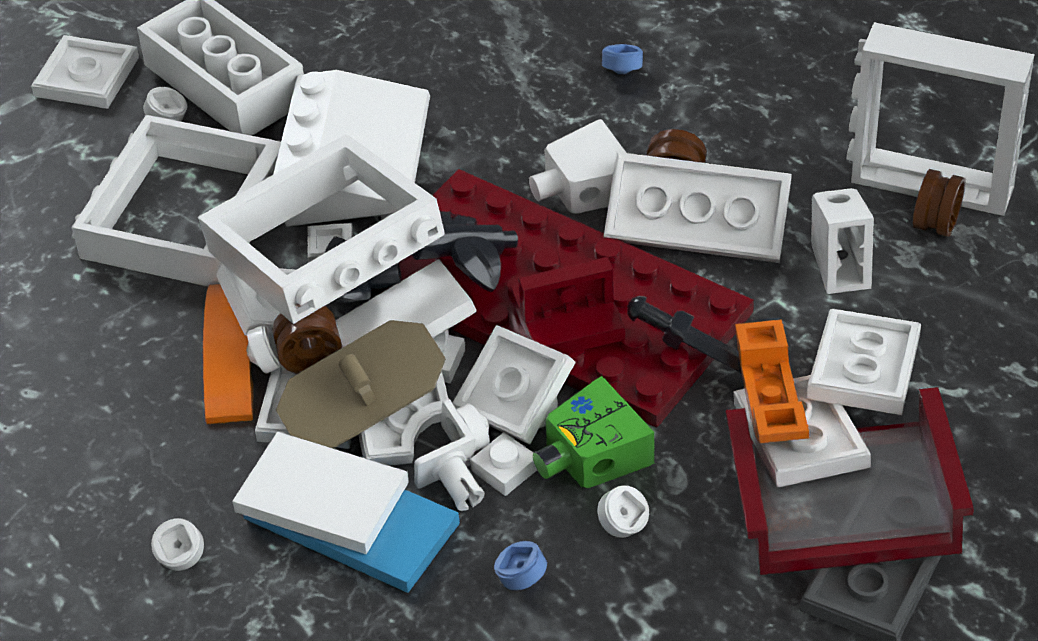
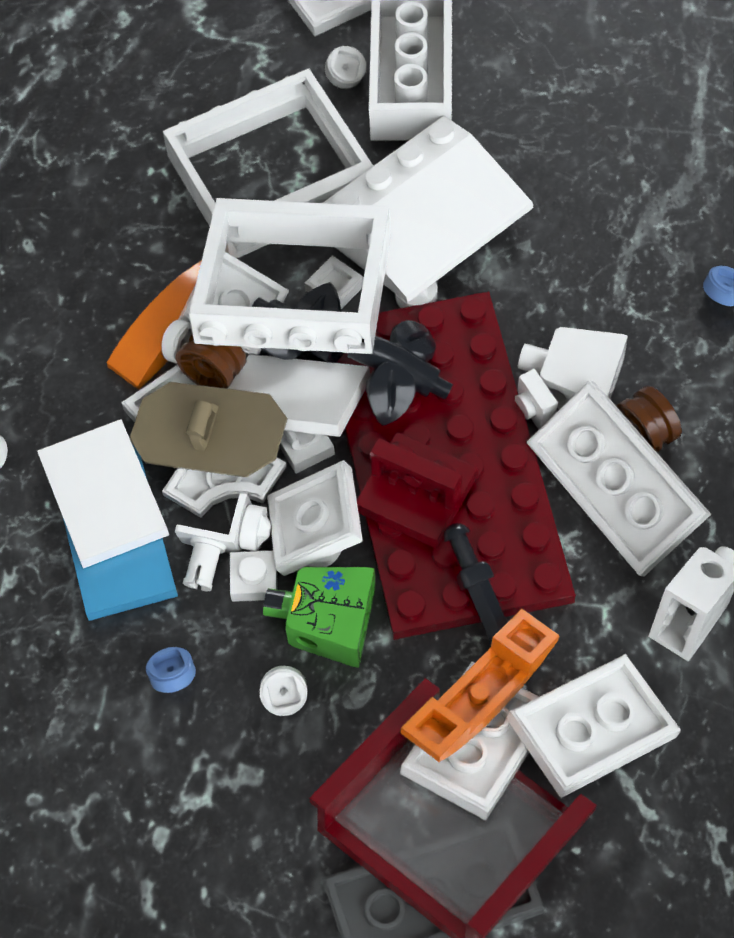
camera: 45 degrees right, 15 degrees up
(580, 203) = (535, 398): none -> white plate

